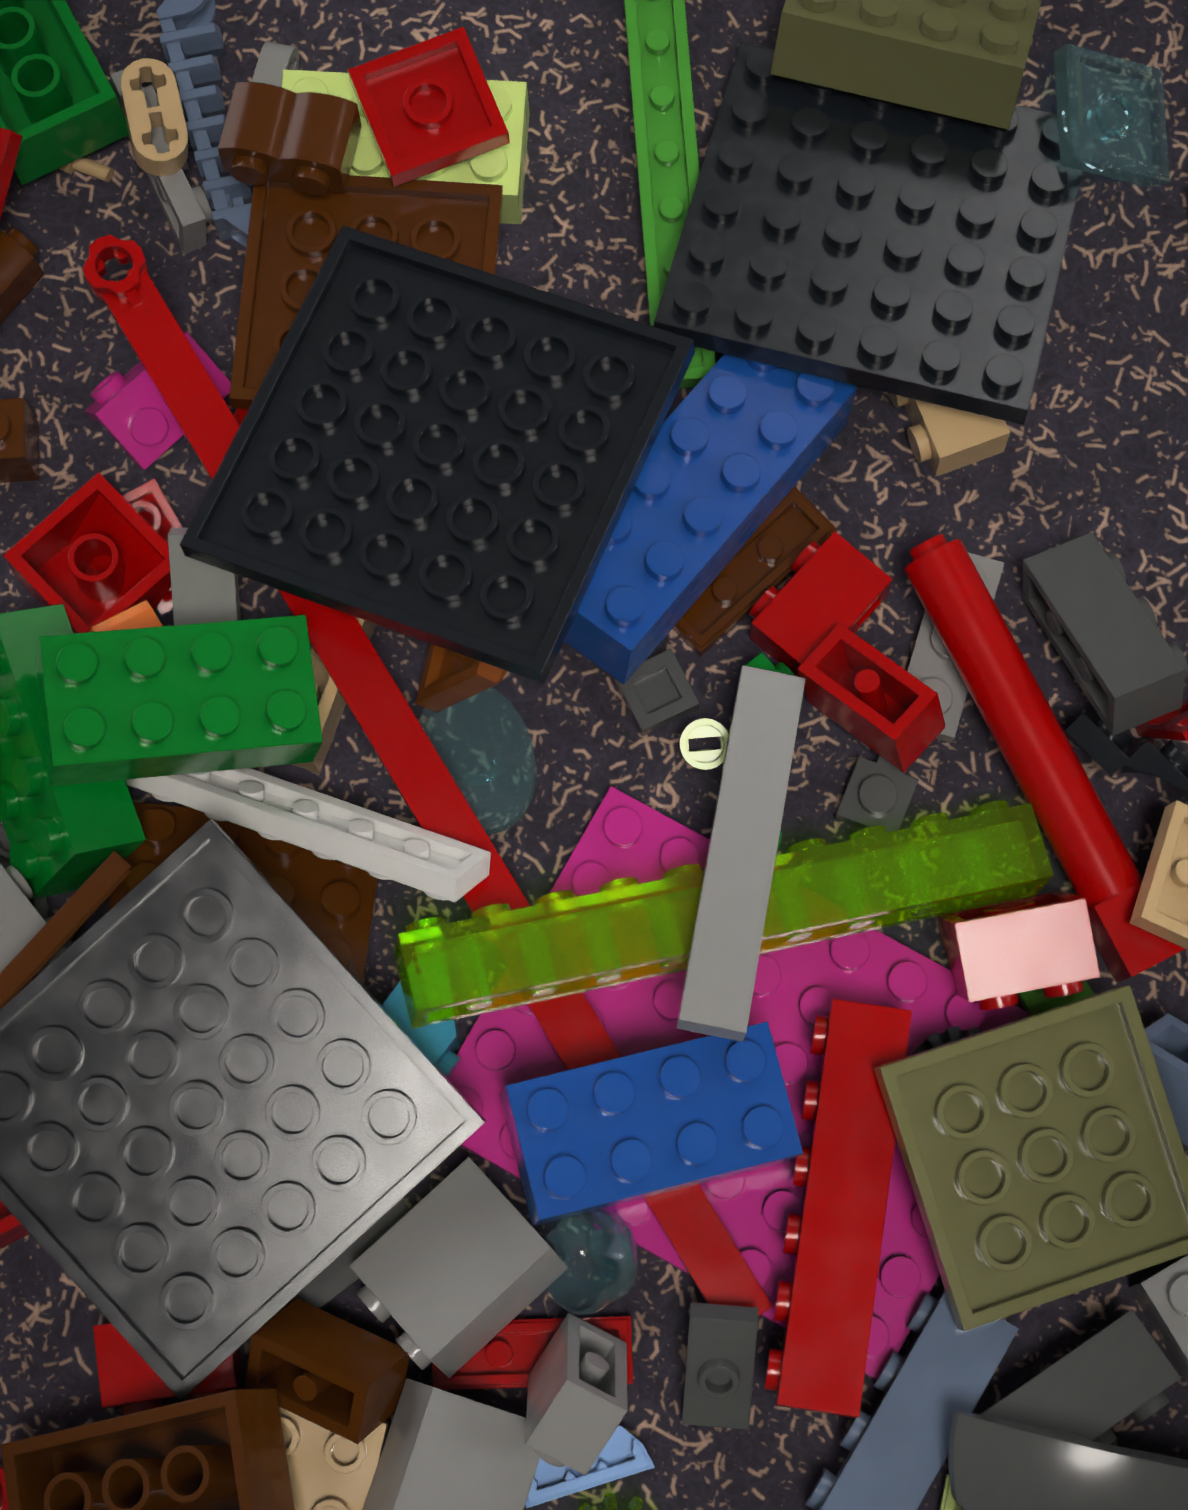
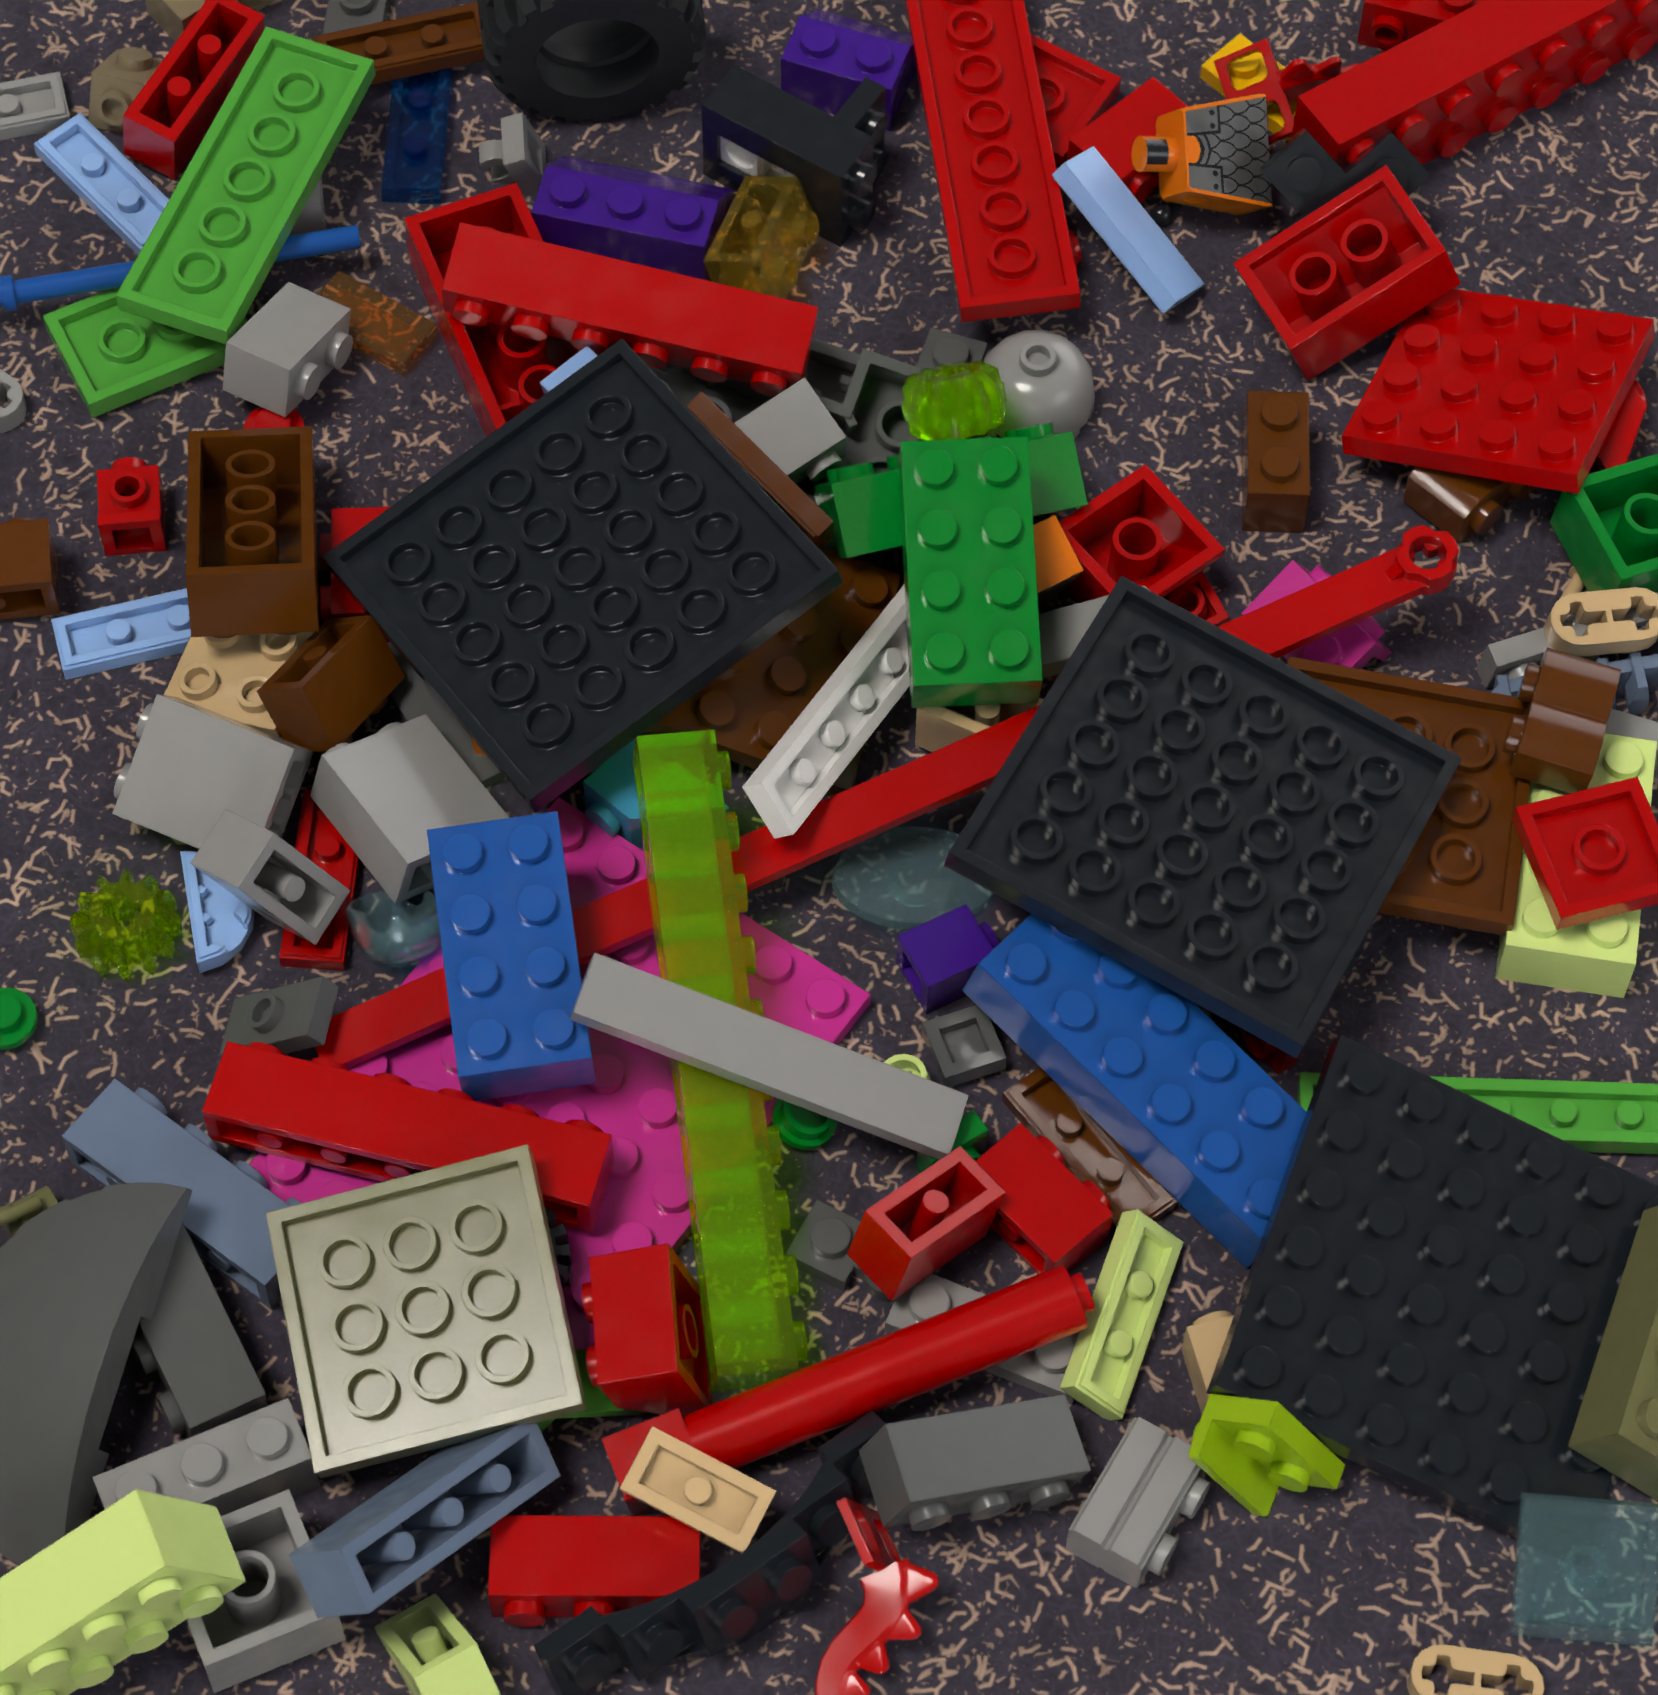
camera: 90 degrees right, 15 degrees down
(567, 714) = (943, 955): none -> dark purple brick
(911, 520) = (1124, 1317): none -> yellowish green tile
(1055, 402) = (1258, 1447): none -> lime bracket
(1104, 495) = (1137, 1503): none -> light grey brick

